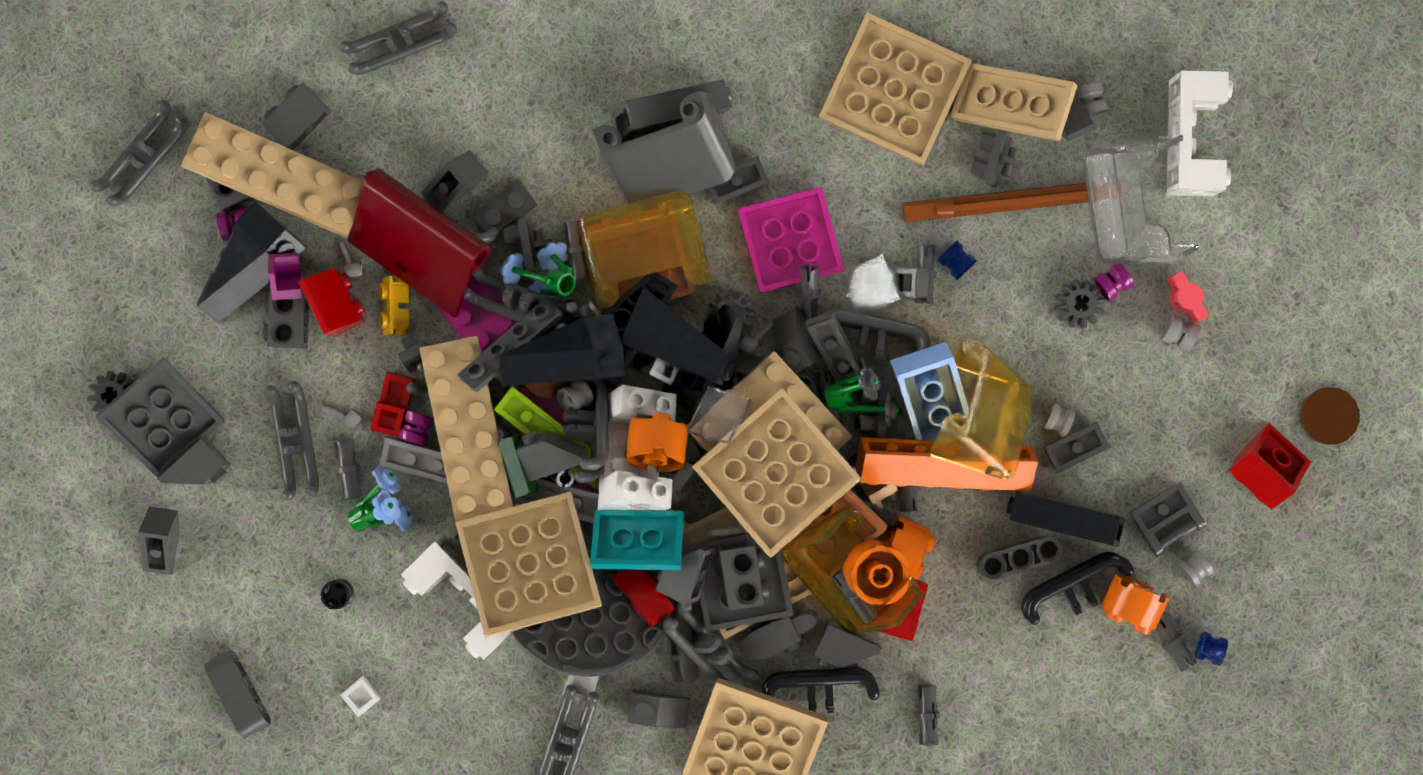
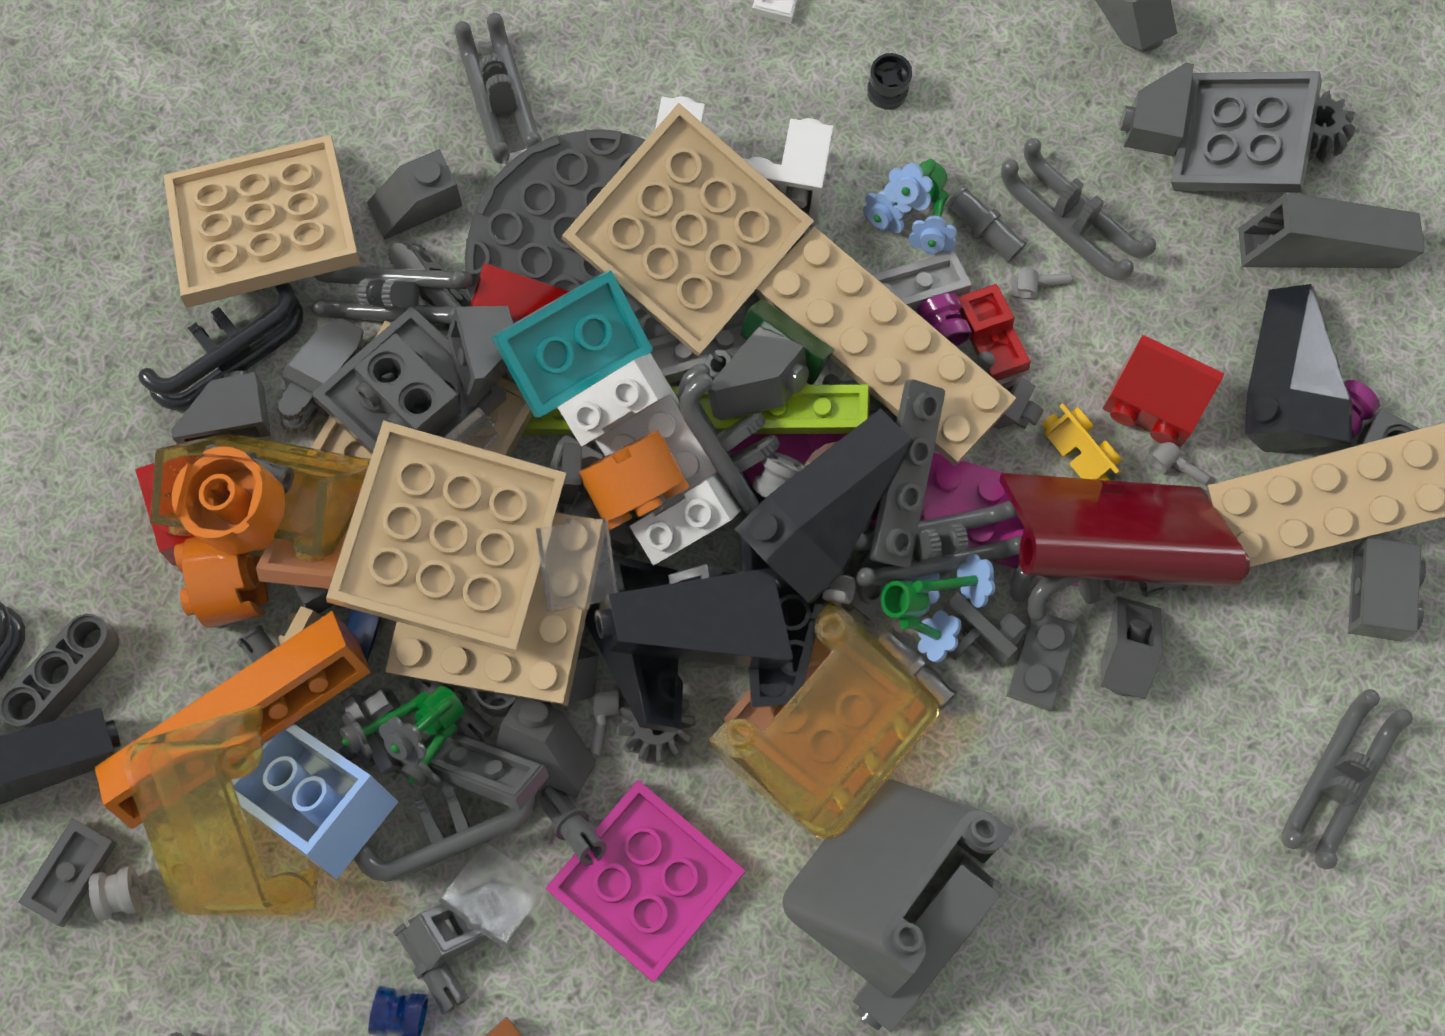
camera: 140 degrees right, 15 degrees down
(162, 325) = (1329, 234): none -> dark grey slope
(284, 274) = (1248, 377): magenta panel -> none
(296, 318) = (1207, 333): dark grey brick -> none
(747, 177) = (764, 920): dark grey plate -> none
(927, 715) = (64, 405): dark grey pin -> none

